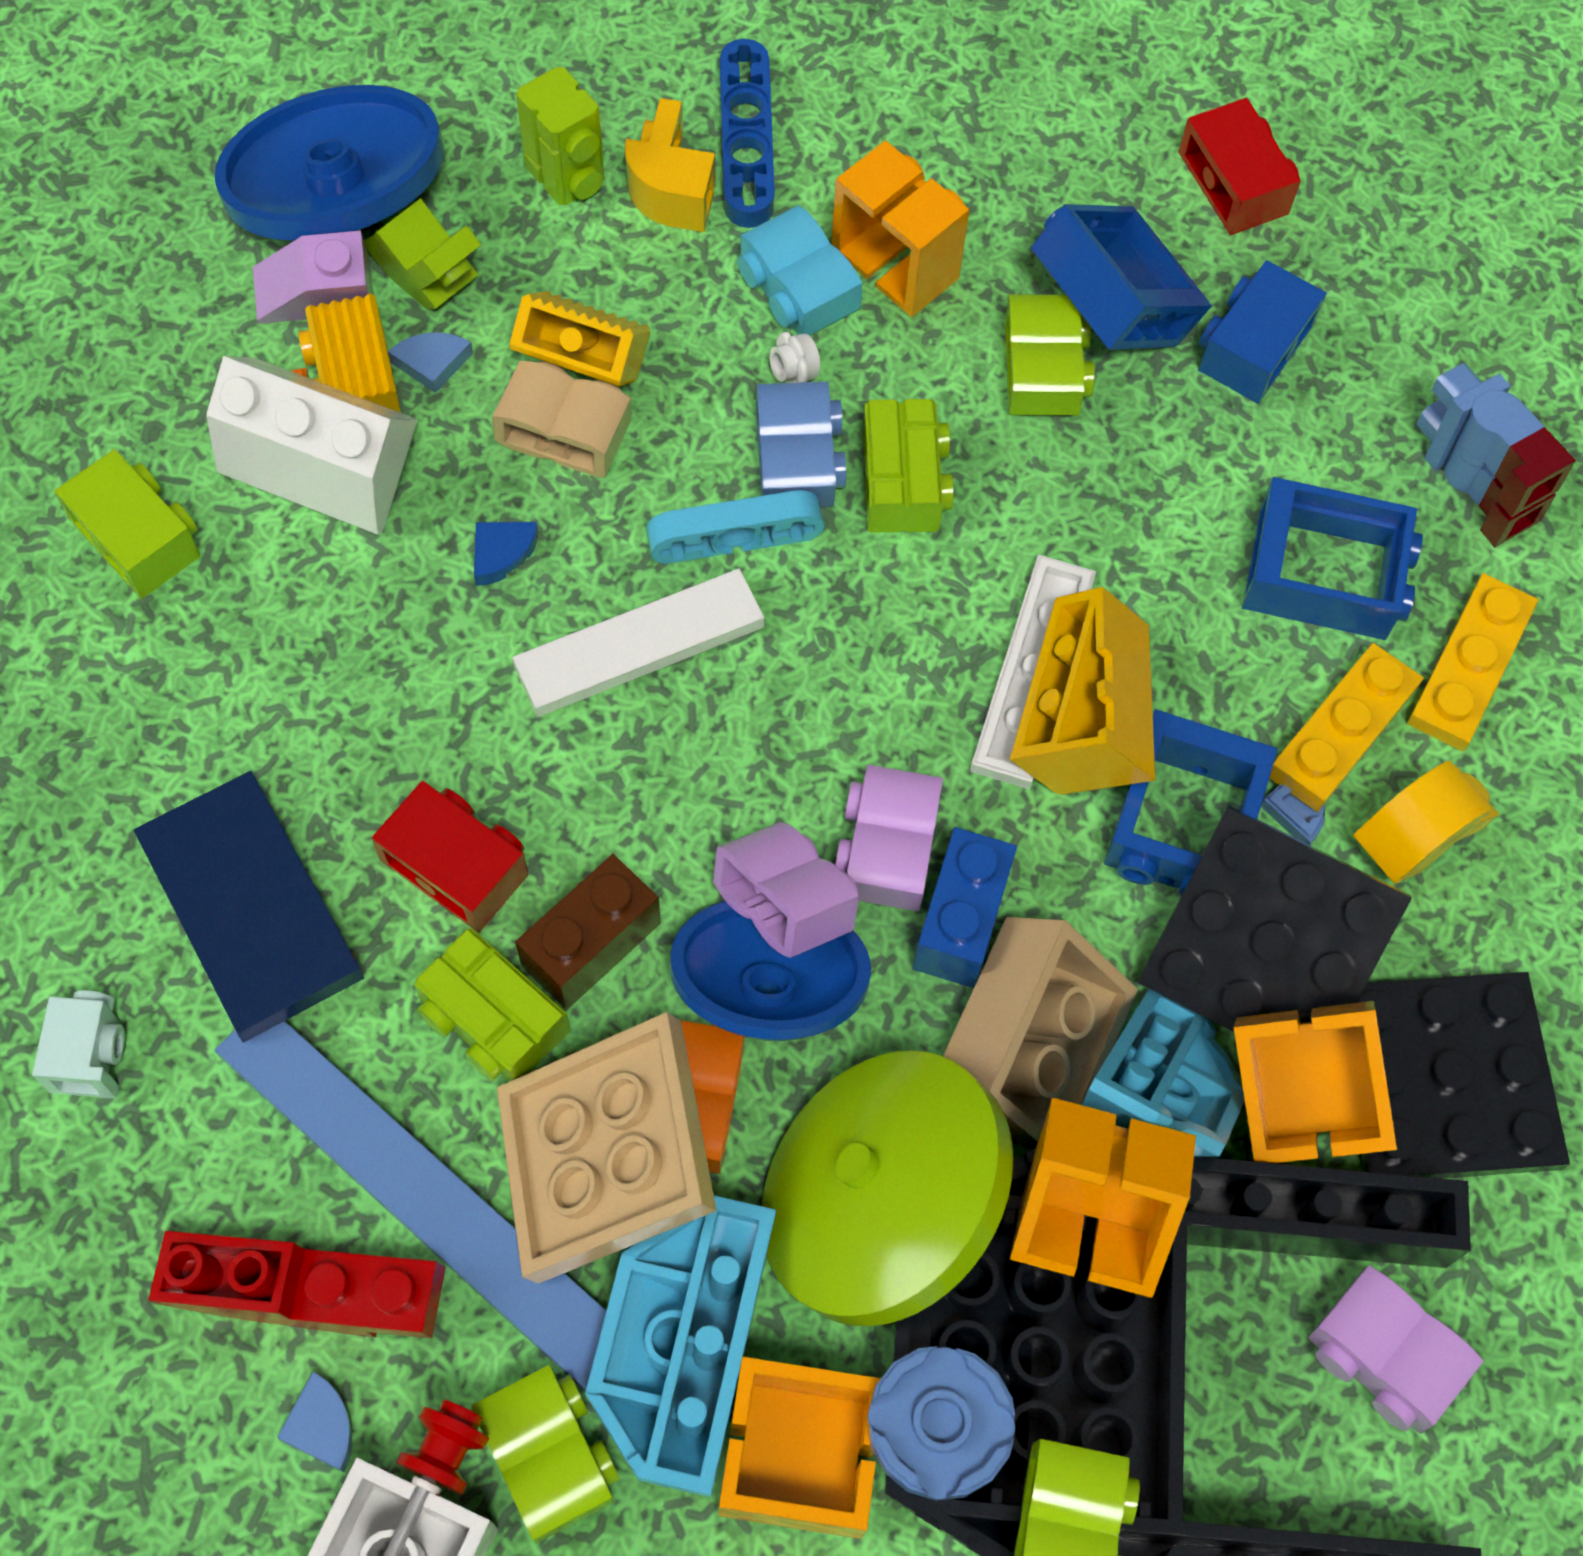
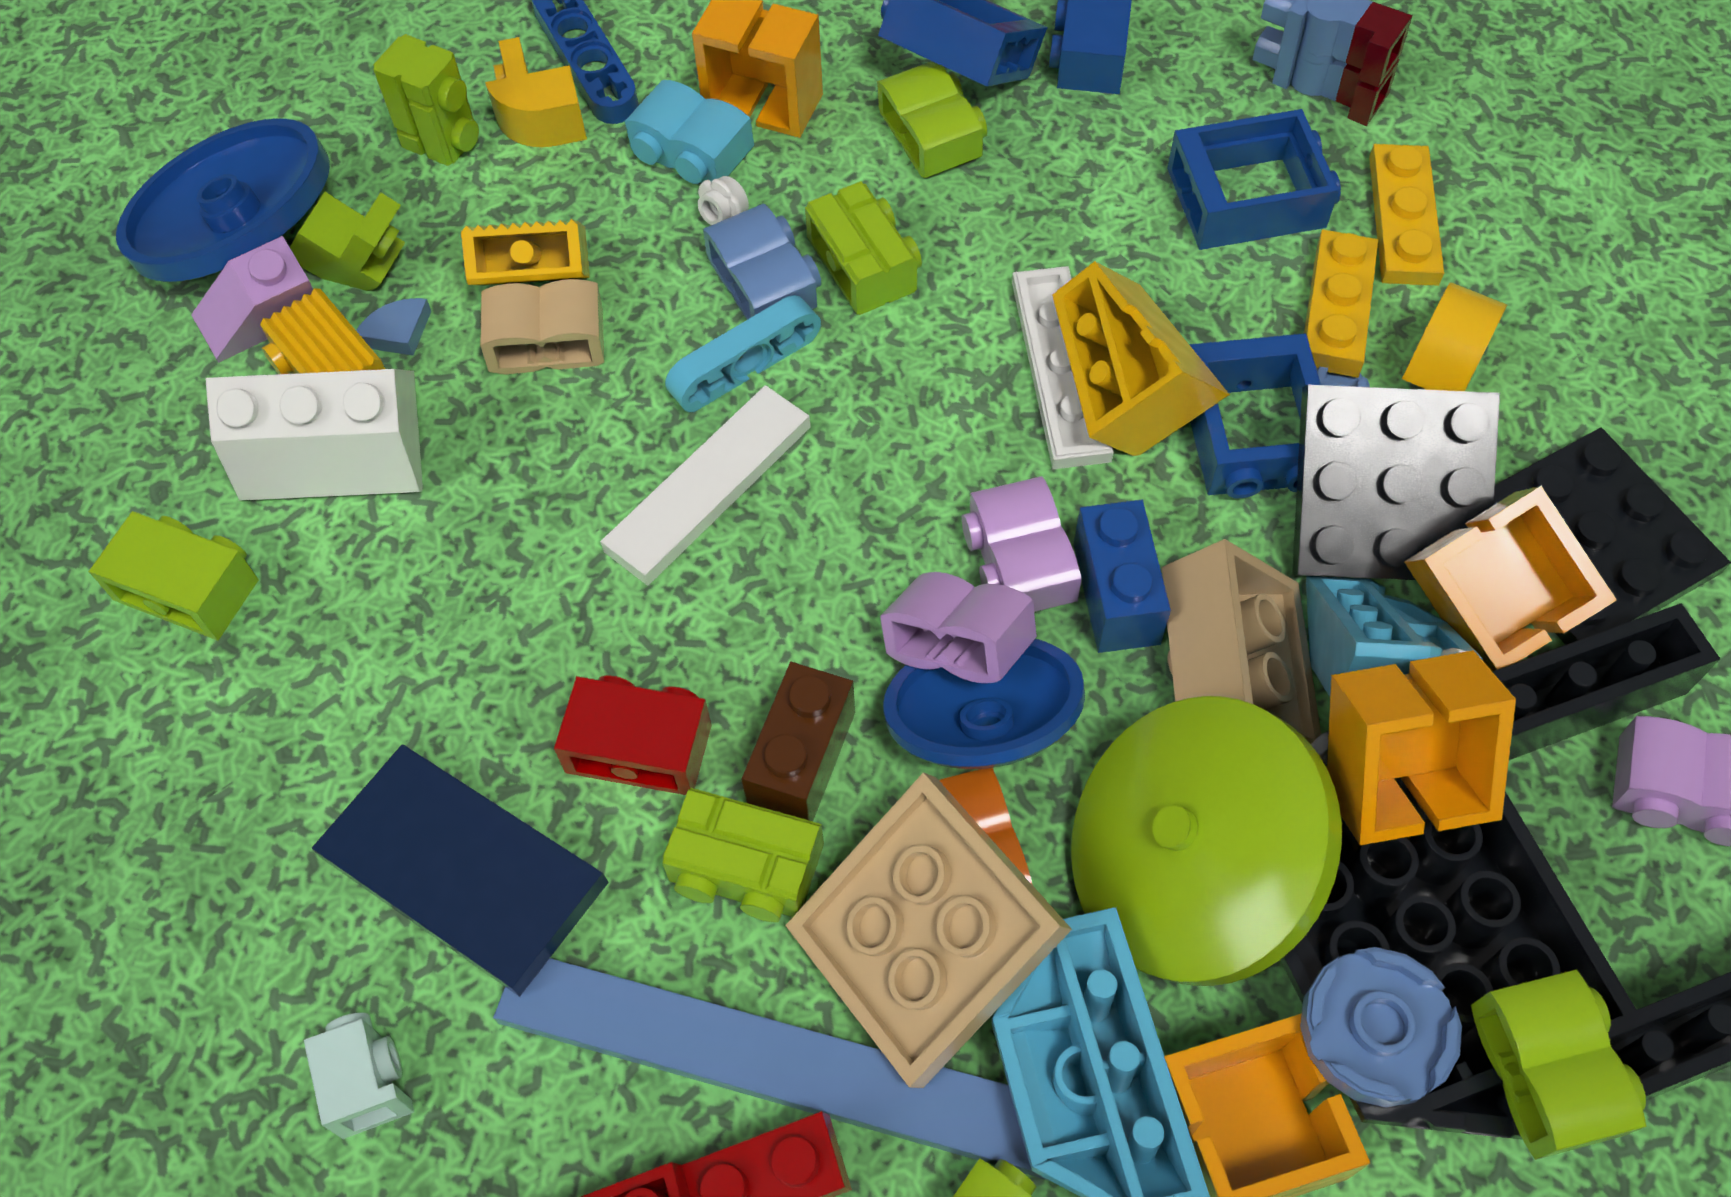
camera: 20 degrees left, 5 degrees down
(502, 548) = (542, 456): blue tile -> none

